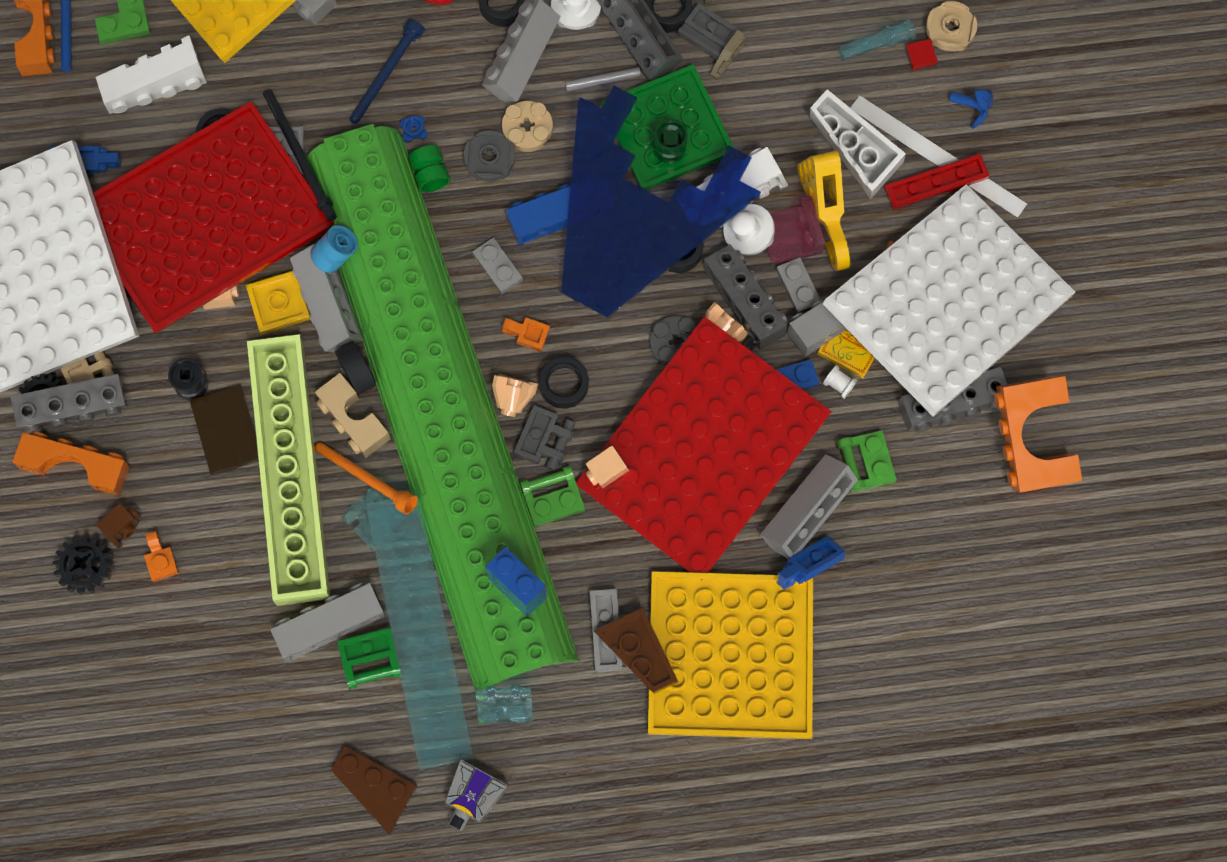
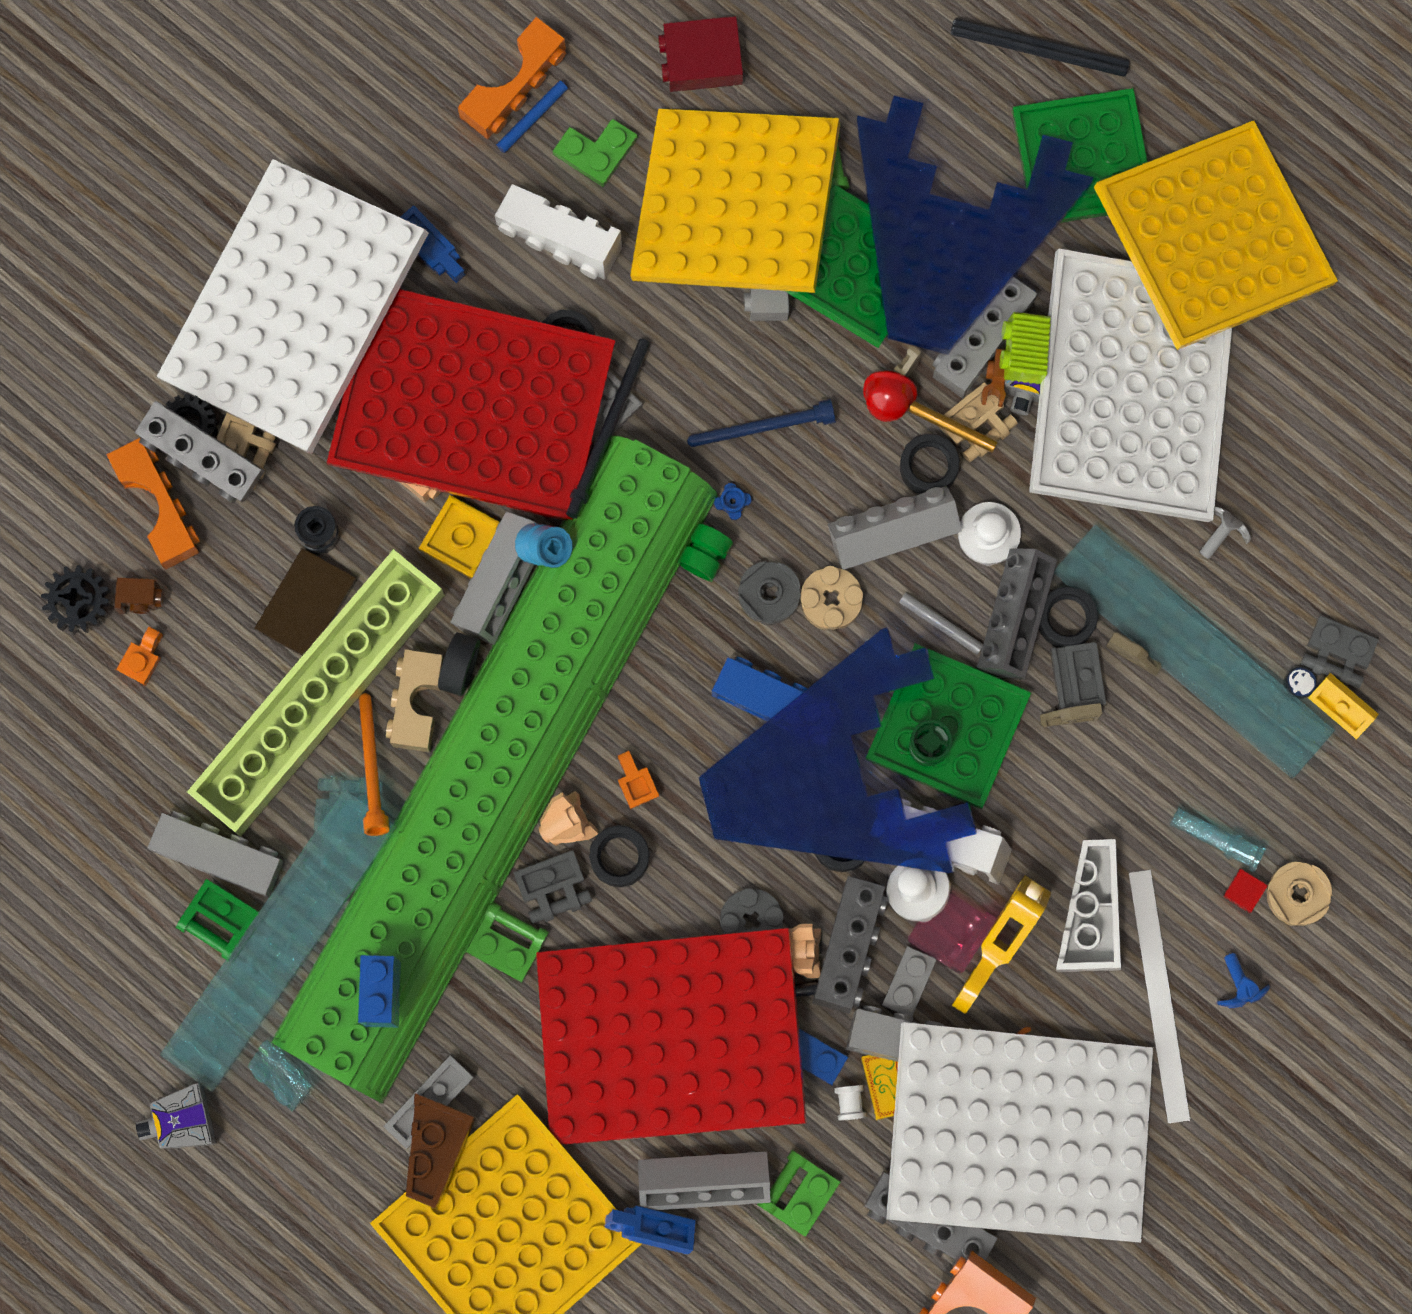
camera: 50 degrees right, 5 degrees up
(374, 786) = (113, 1028): reddish brown wing -> none
(497, 266) = (674, 696): light grey plate -> none
(606, 467) = (569, 968): light nougat brick -> none
(936, 181) = (1130, 1018): red tile -> none

